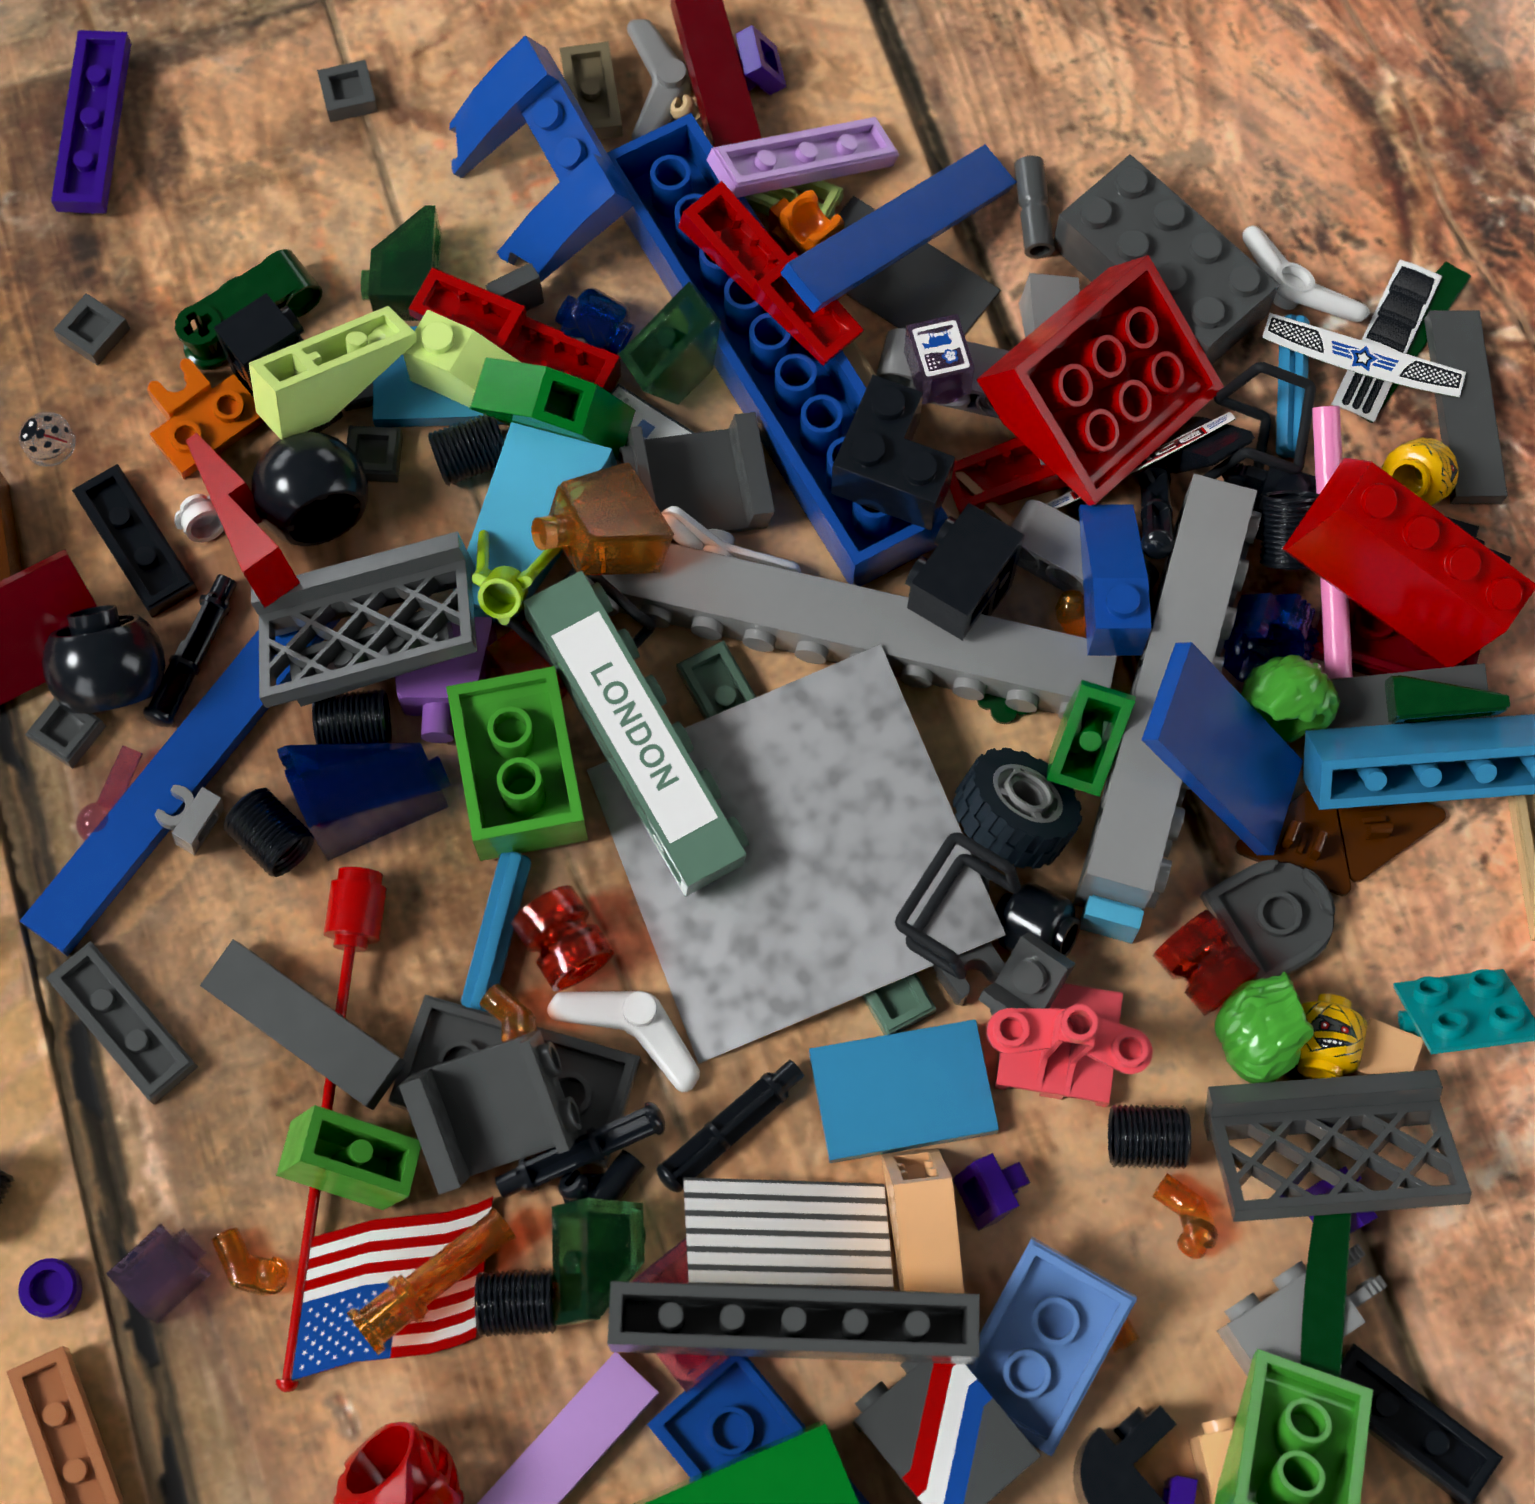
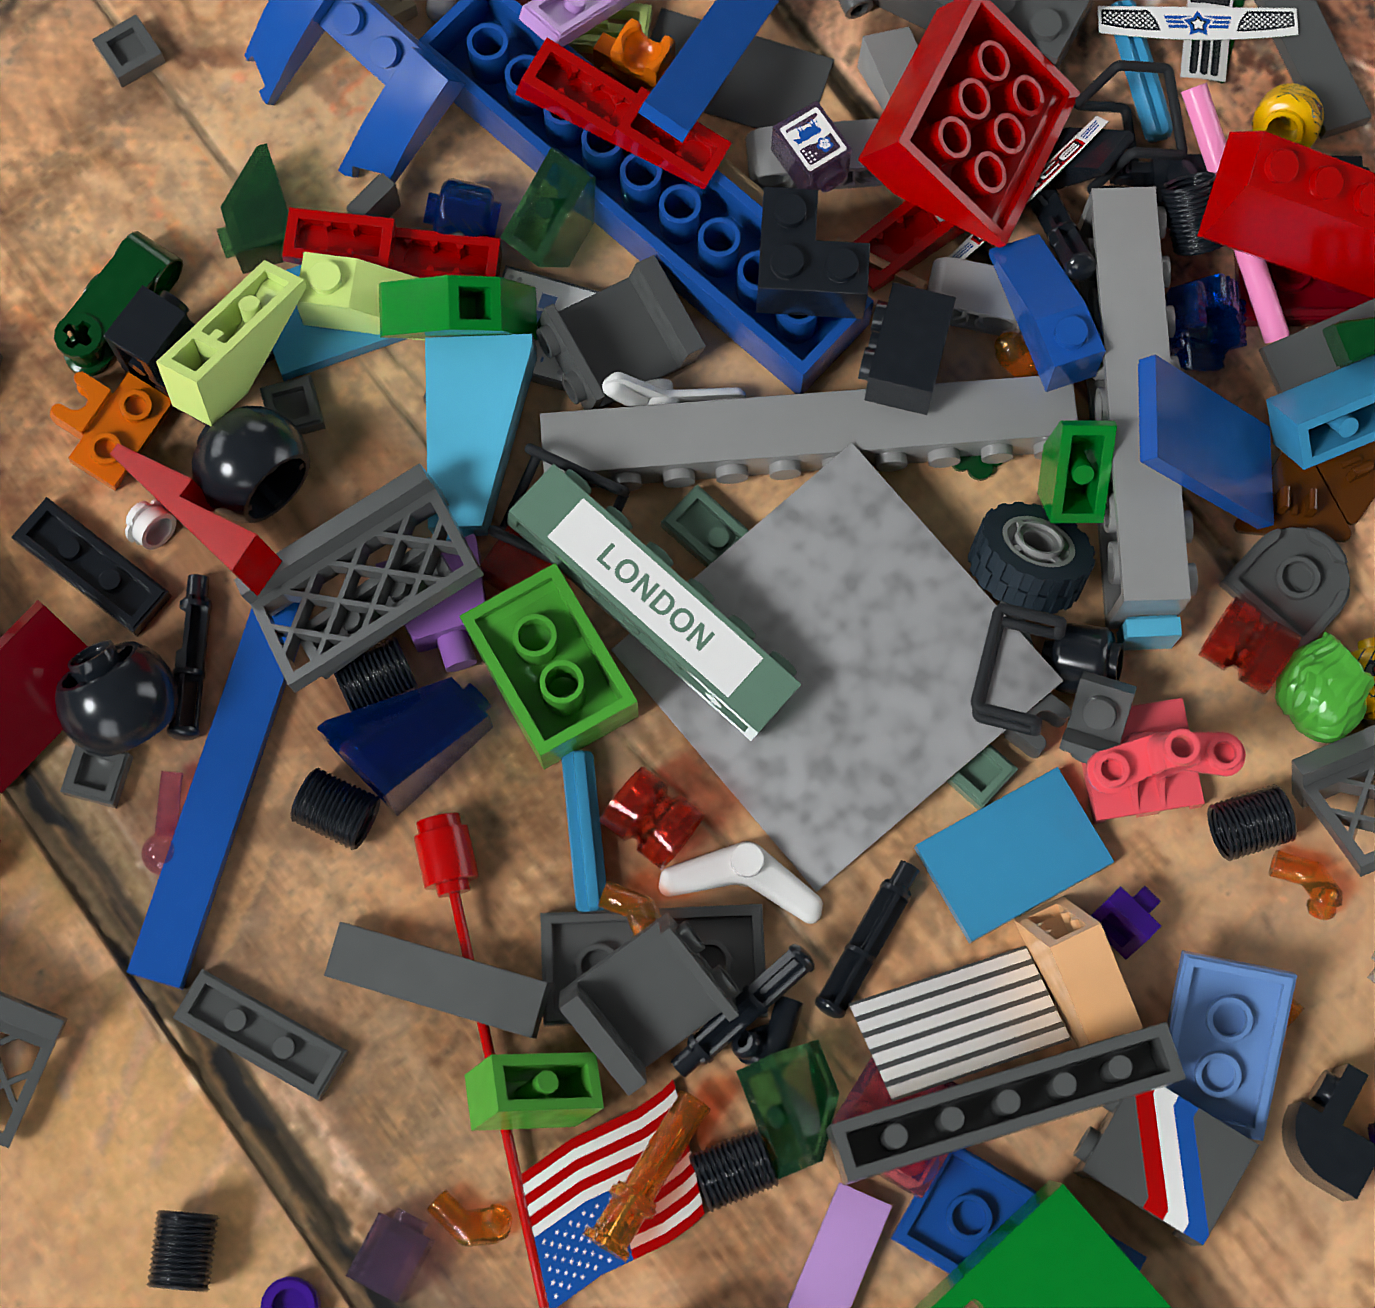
camera: 20 degrees left, 5 degrees up
(195, 821) = (259, 818): light grey tile -> none
(467, 448) = (386, 375): black piece -> none
(505, 587) = (485, 502): lime plant -> none
(606, 524) = (557, 410): clear orange torso -> none
(1292, 695) = (1245, 369): bright green hair -> none

